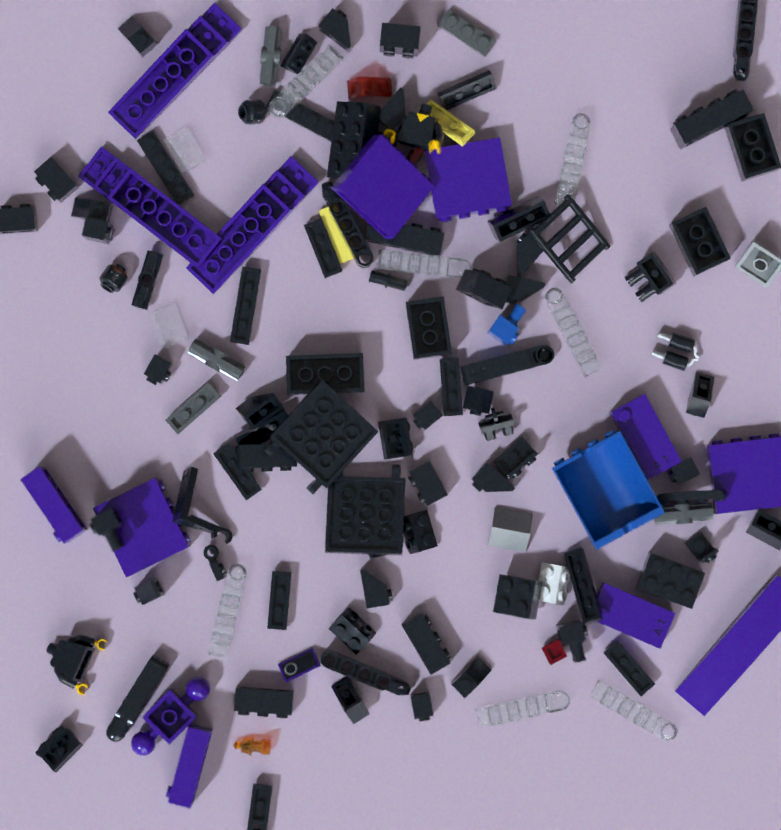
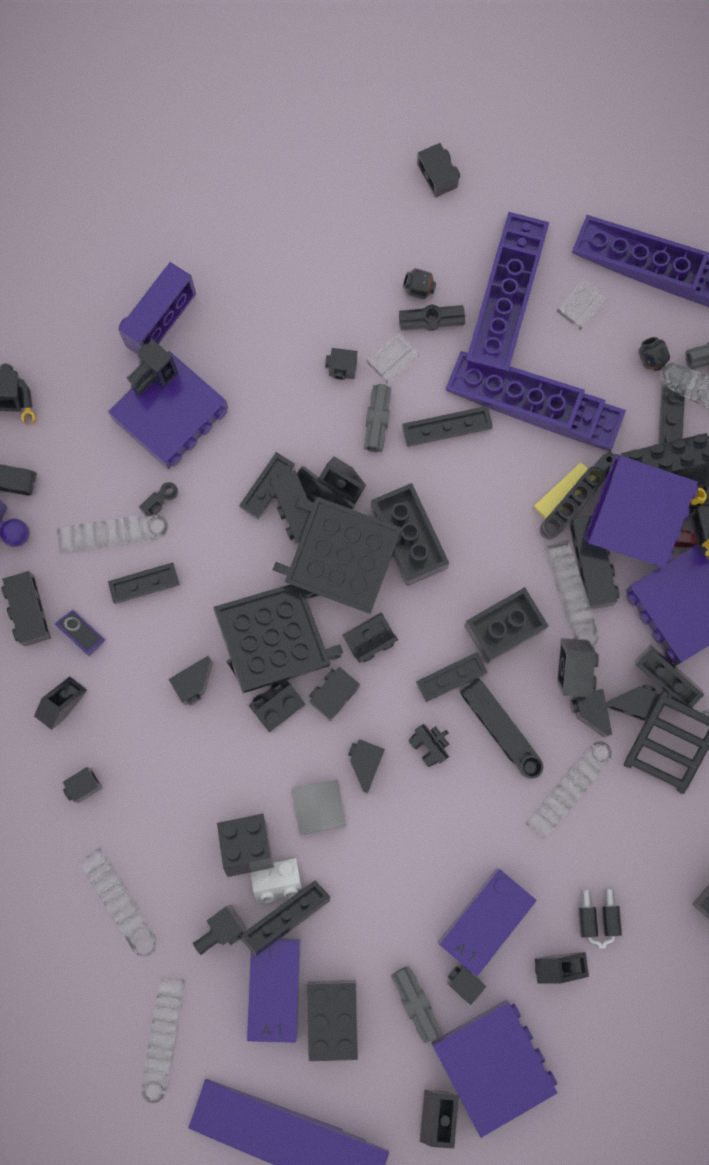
camera: 70 degrees right, 10 degrees down
(55, 179) = (495, 191): black brick -> none
(91, 208) = (480, 240): black slope -> none
(98, 230) = (461, 246): black brick -> none
(137, 36) = (675, 216): black slope -> none
(148, 591) = (103, 442): black slope -> none
(165, 168) = (555, 293): black plate -> none
(183, 506) = (193, 456): black hinge -> none
(193, 408) = (316, 414): dark grey plate -> none
(323, 248) = (542, 482): black plate -> none
(352, 630) = (139, 675): black bracket -> none
(387, 280) = (538, 563): black axle -> none
(393, 682) = (97, 742): black piece -> none
(426, 643) = (154, 763): black brick -> none
(427, 416) = (408, 663): black brick -> none
(471, 677) = (133, 828): black slope -> none
(478, 400) = (449, 712): black brick -> none
(506, 328) = (541, 710): blue brick -> none
(515, 458) = (401, 780): black bracket -> none
(554, 652) = (198, 914): dark red plate -> none
(607, 489) = (409, 900): blue cylinder -> none
(629, 668) = (211, 1012): black plate -> none
(655, 272) = (680, 854): black brick -> none
(700, 496) = (444, 1016): black plate -> none
(701, 548) = (384, 1043): black bracket -> none

